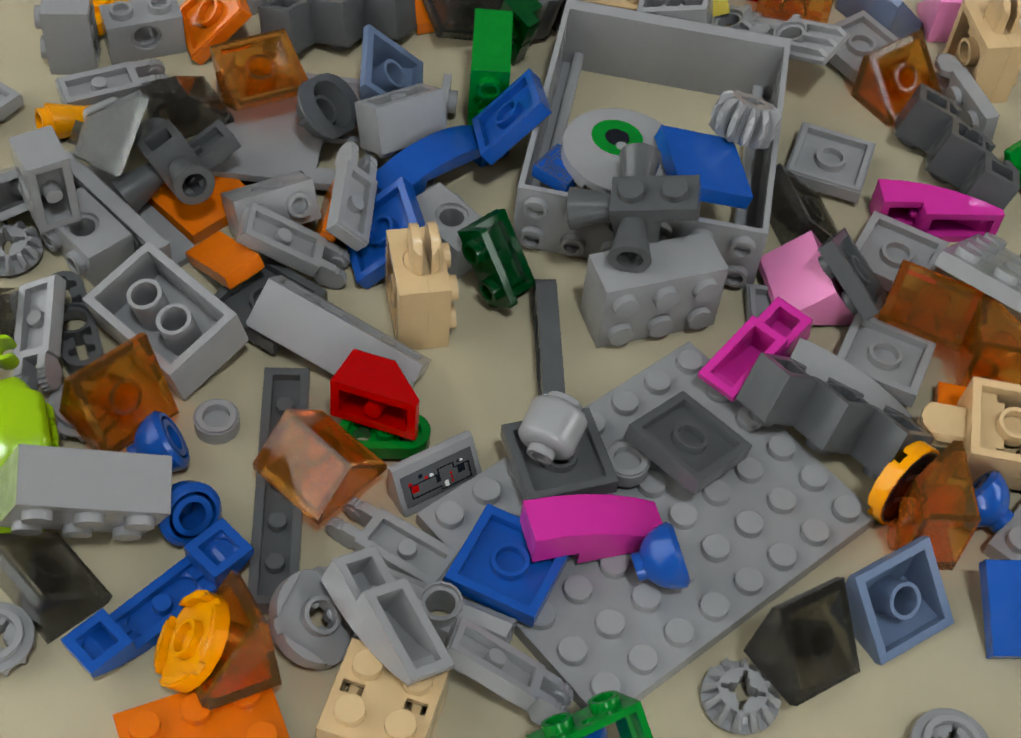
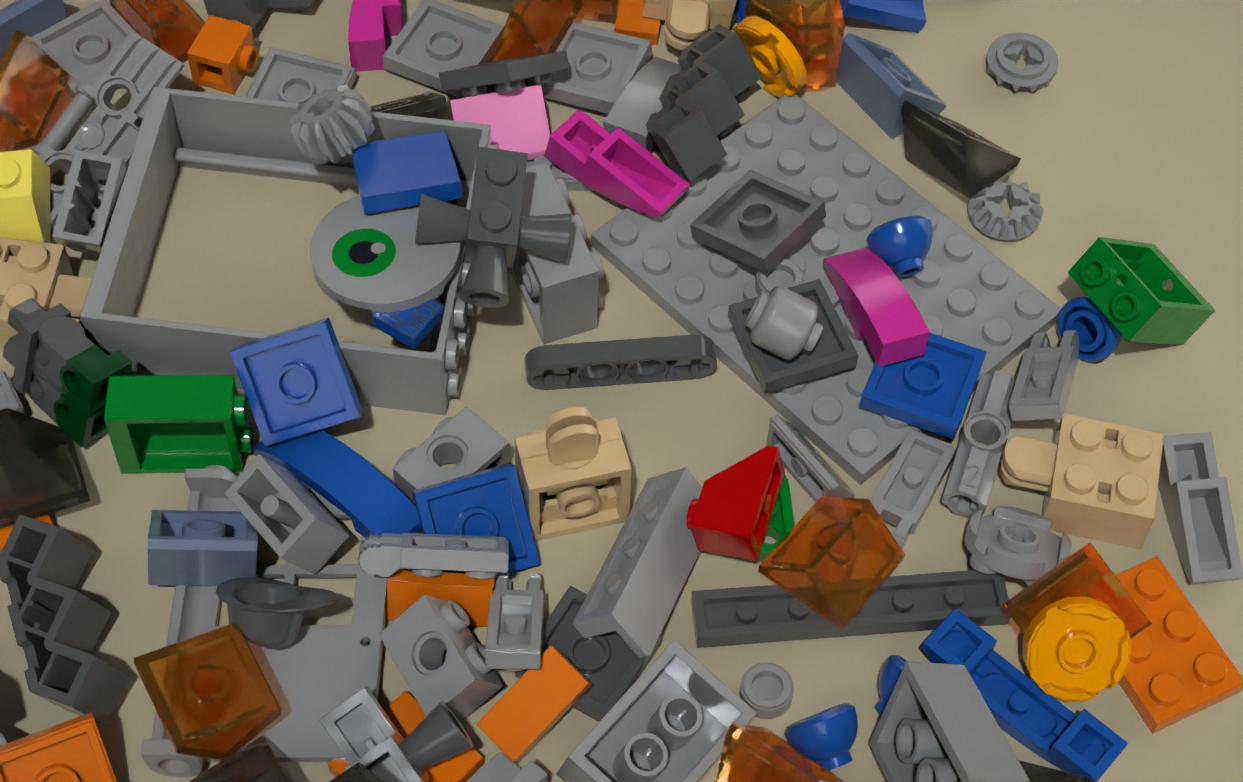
camera: 90 degrees left, 5 degrees up
(386, 615) = (1033, 460): light grey slope -> none
(496, 259) = (513, 405): dark green bracket -> none
(867, 115) = (222, 54): none -> orange brick

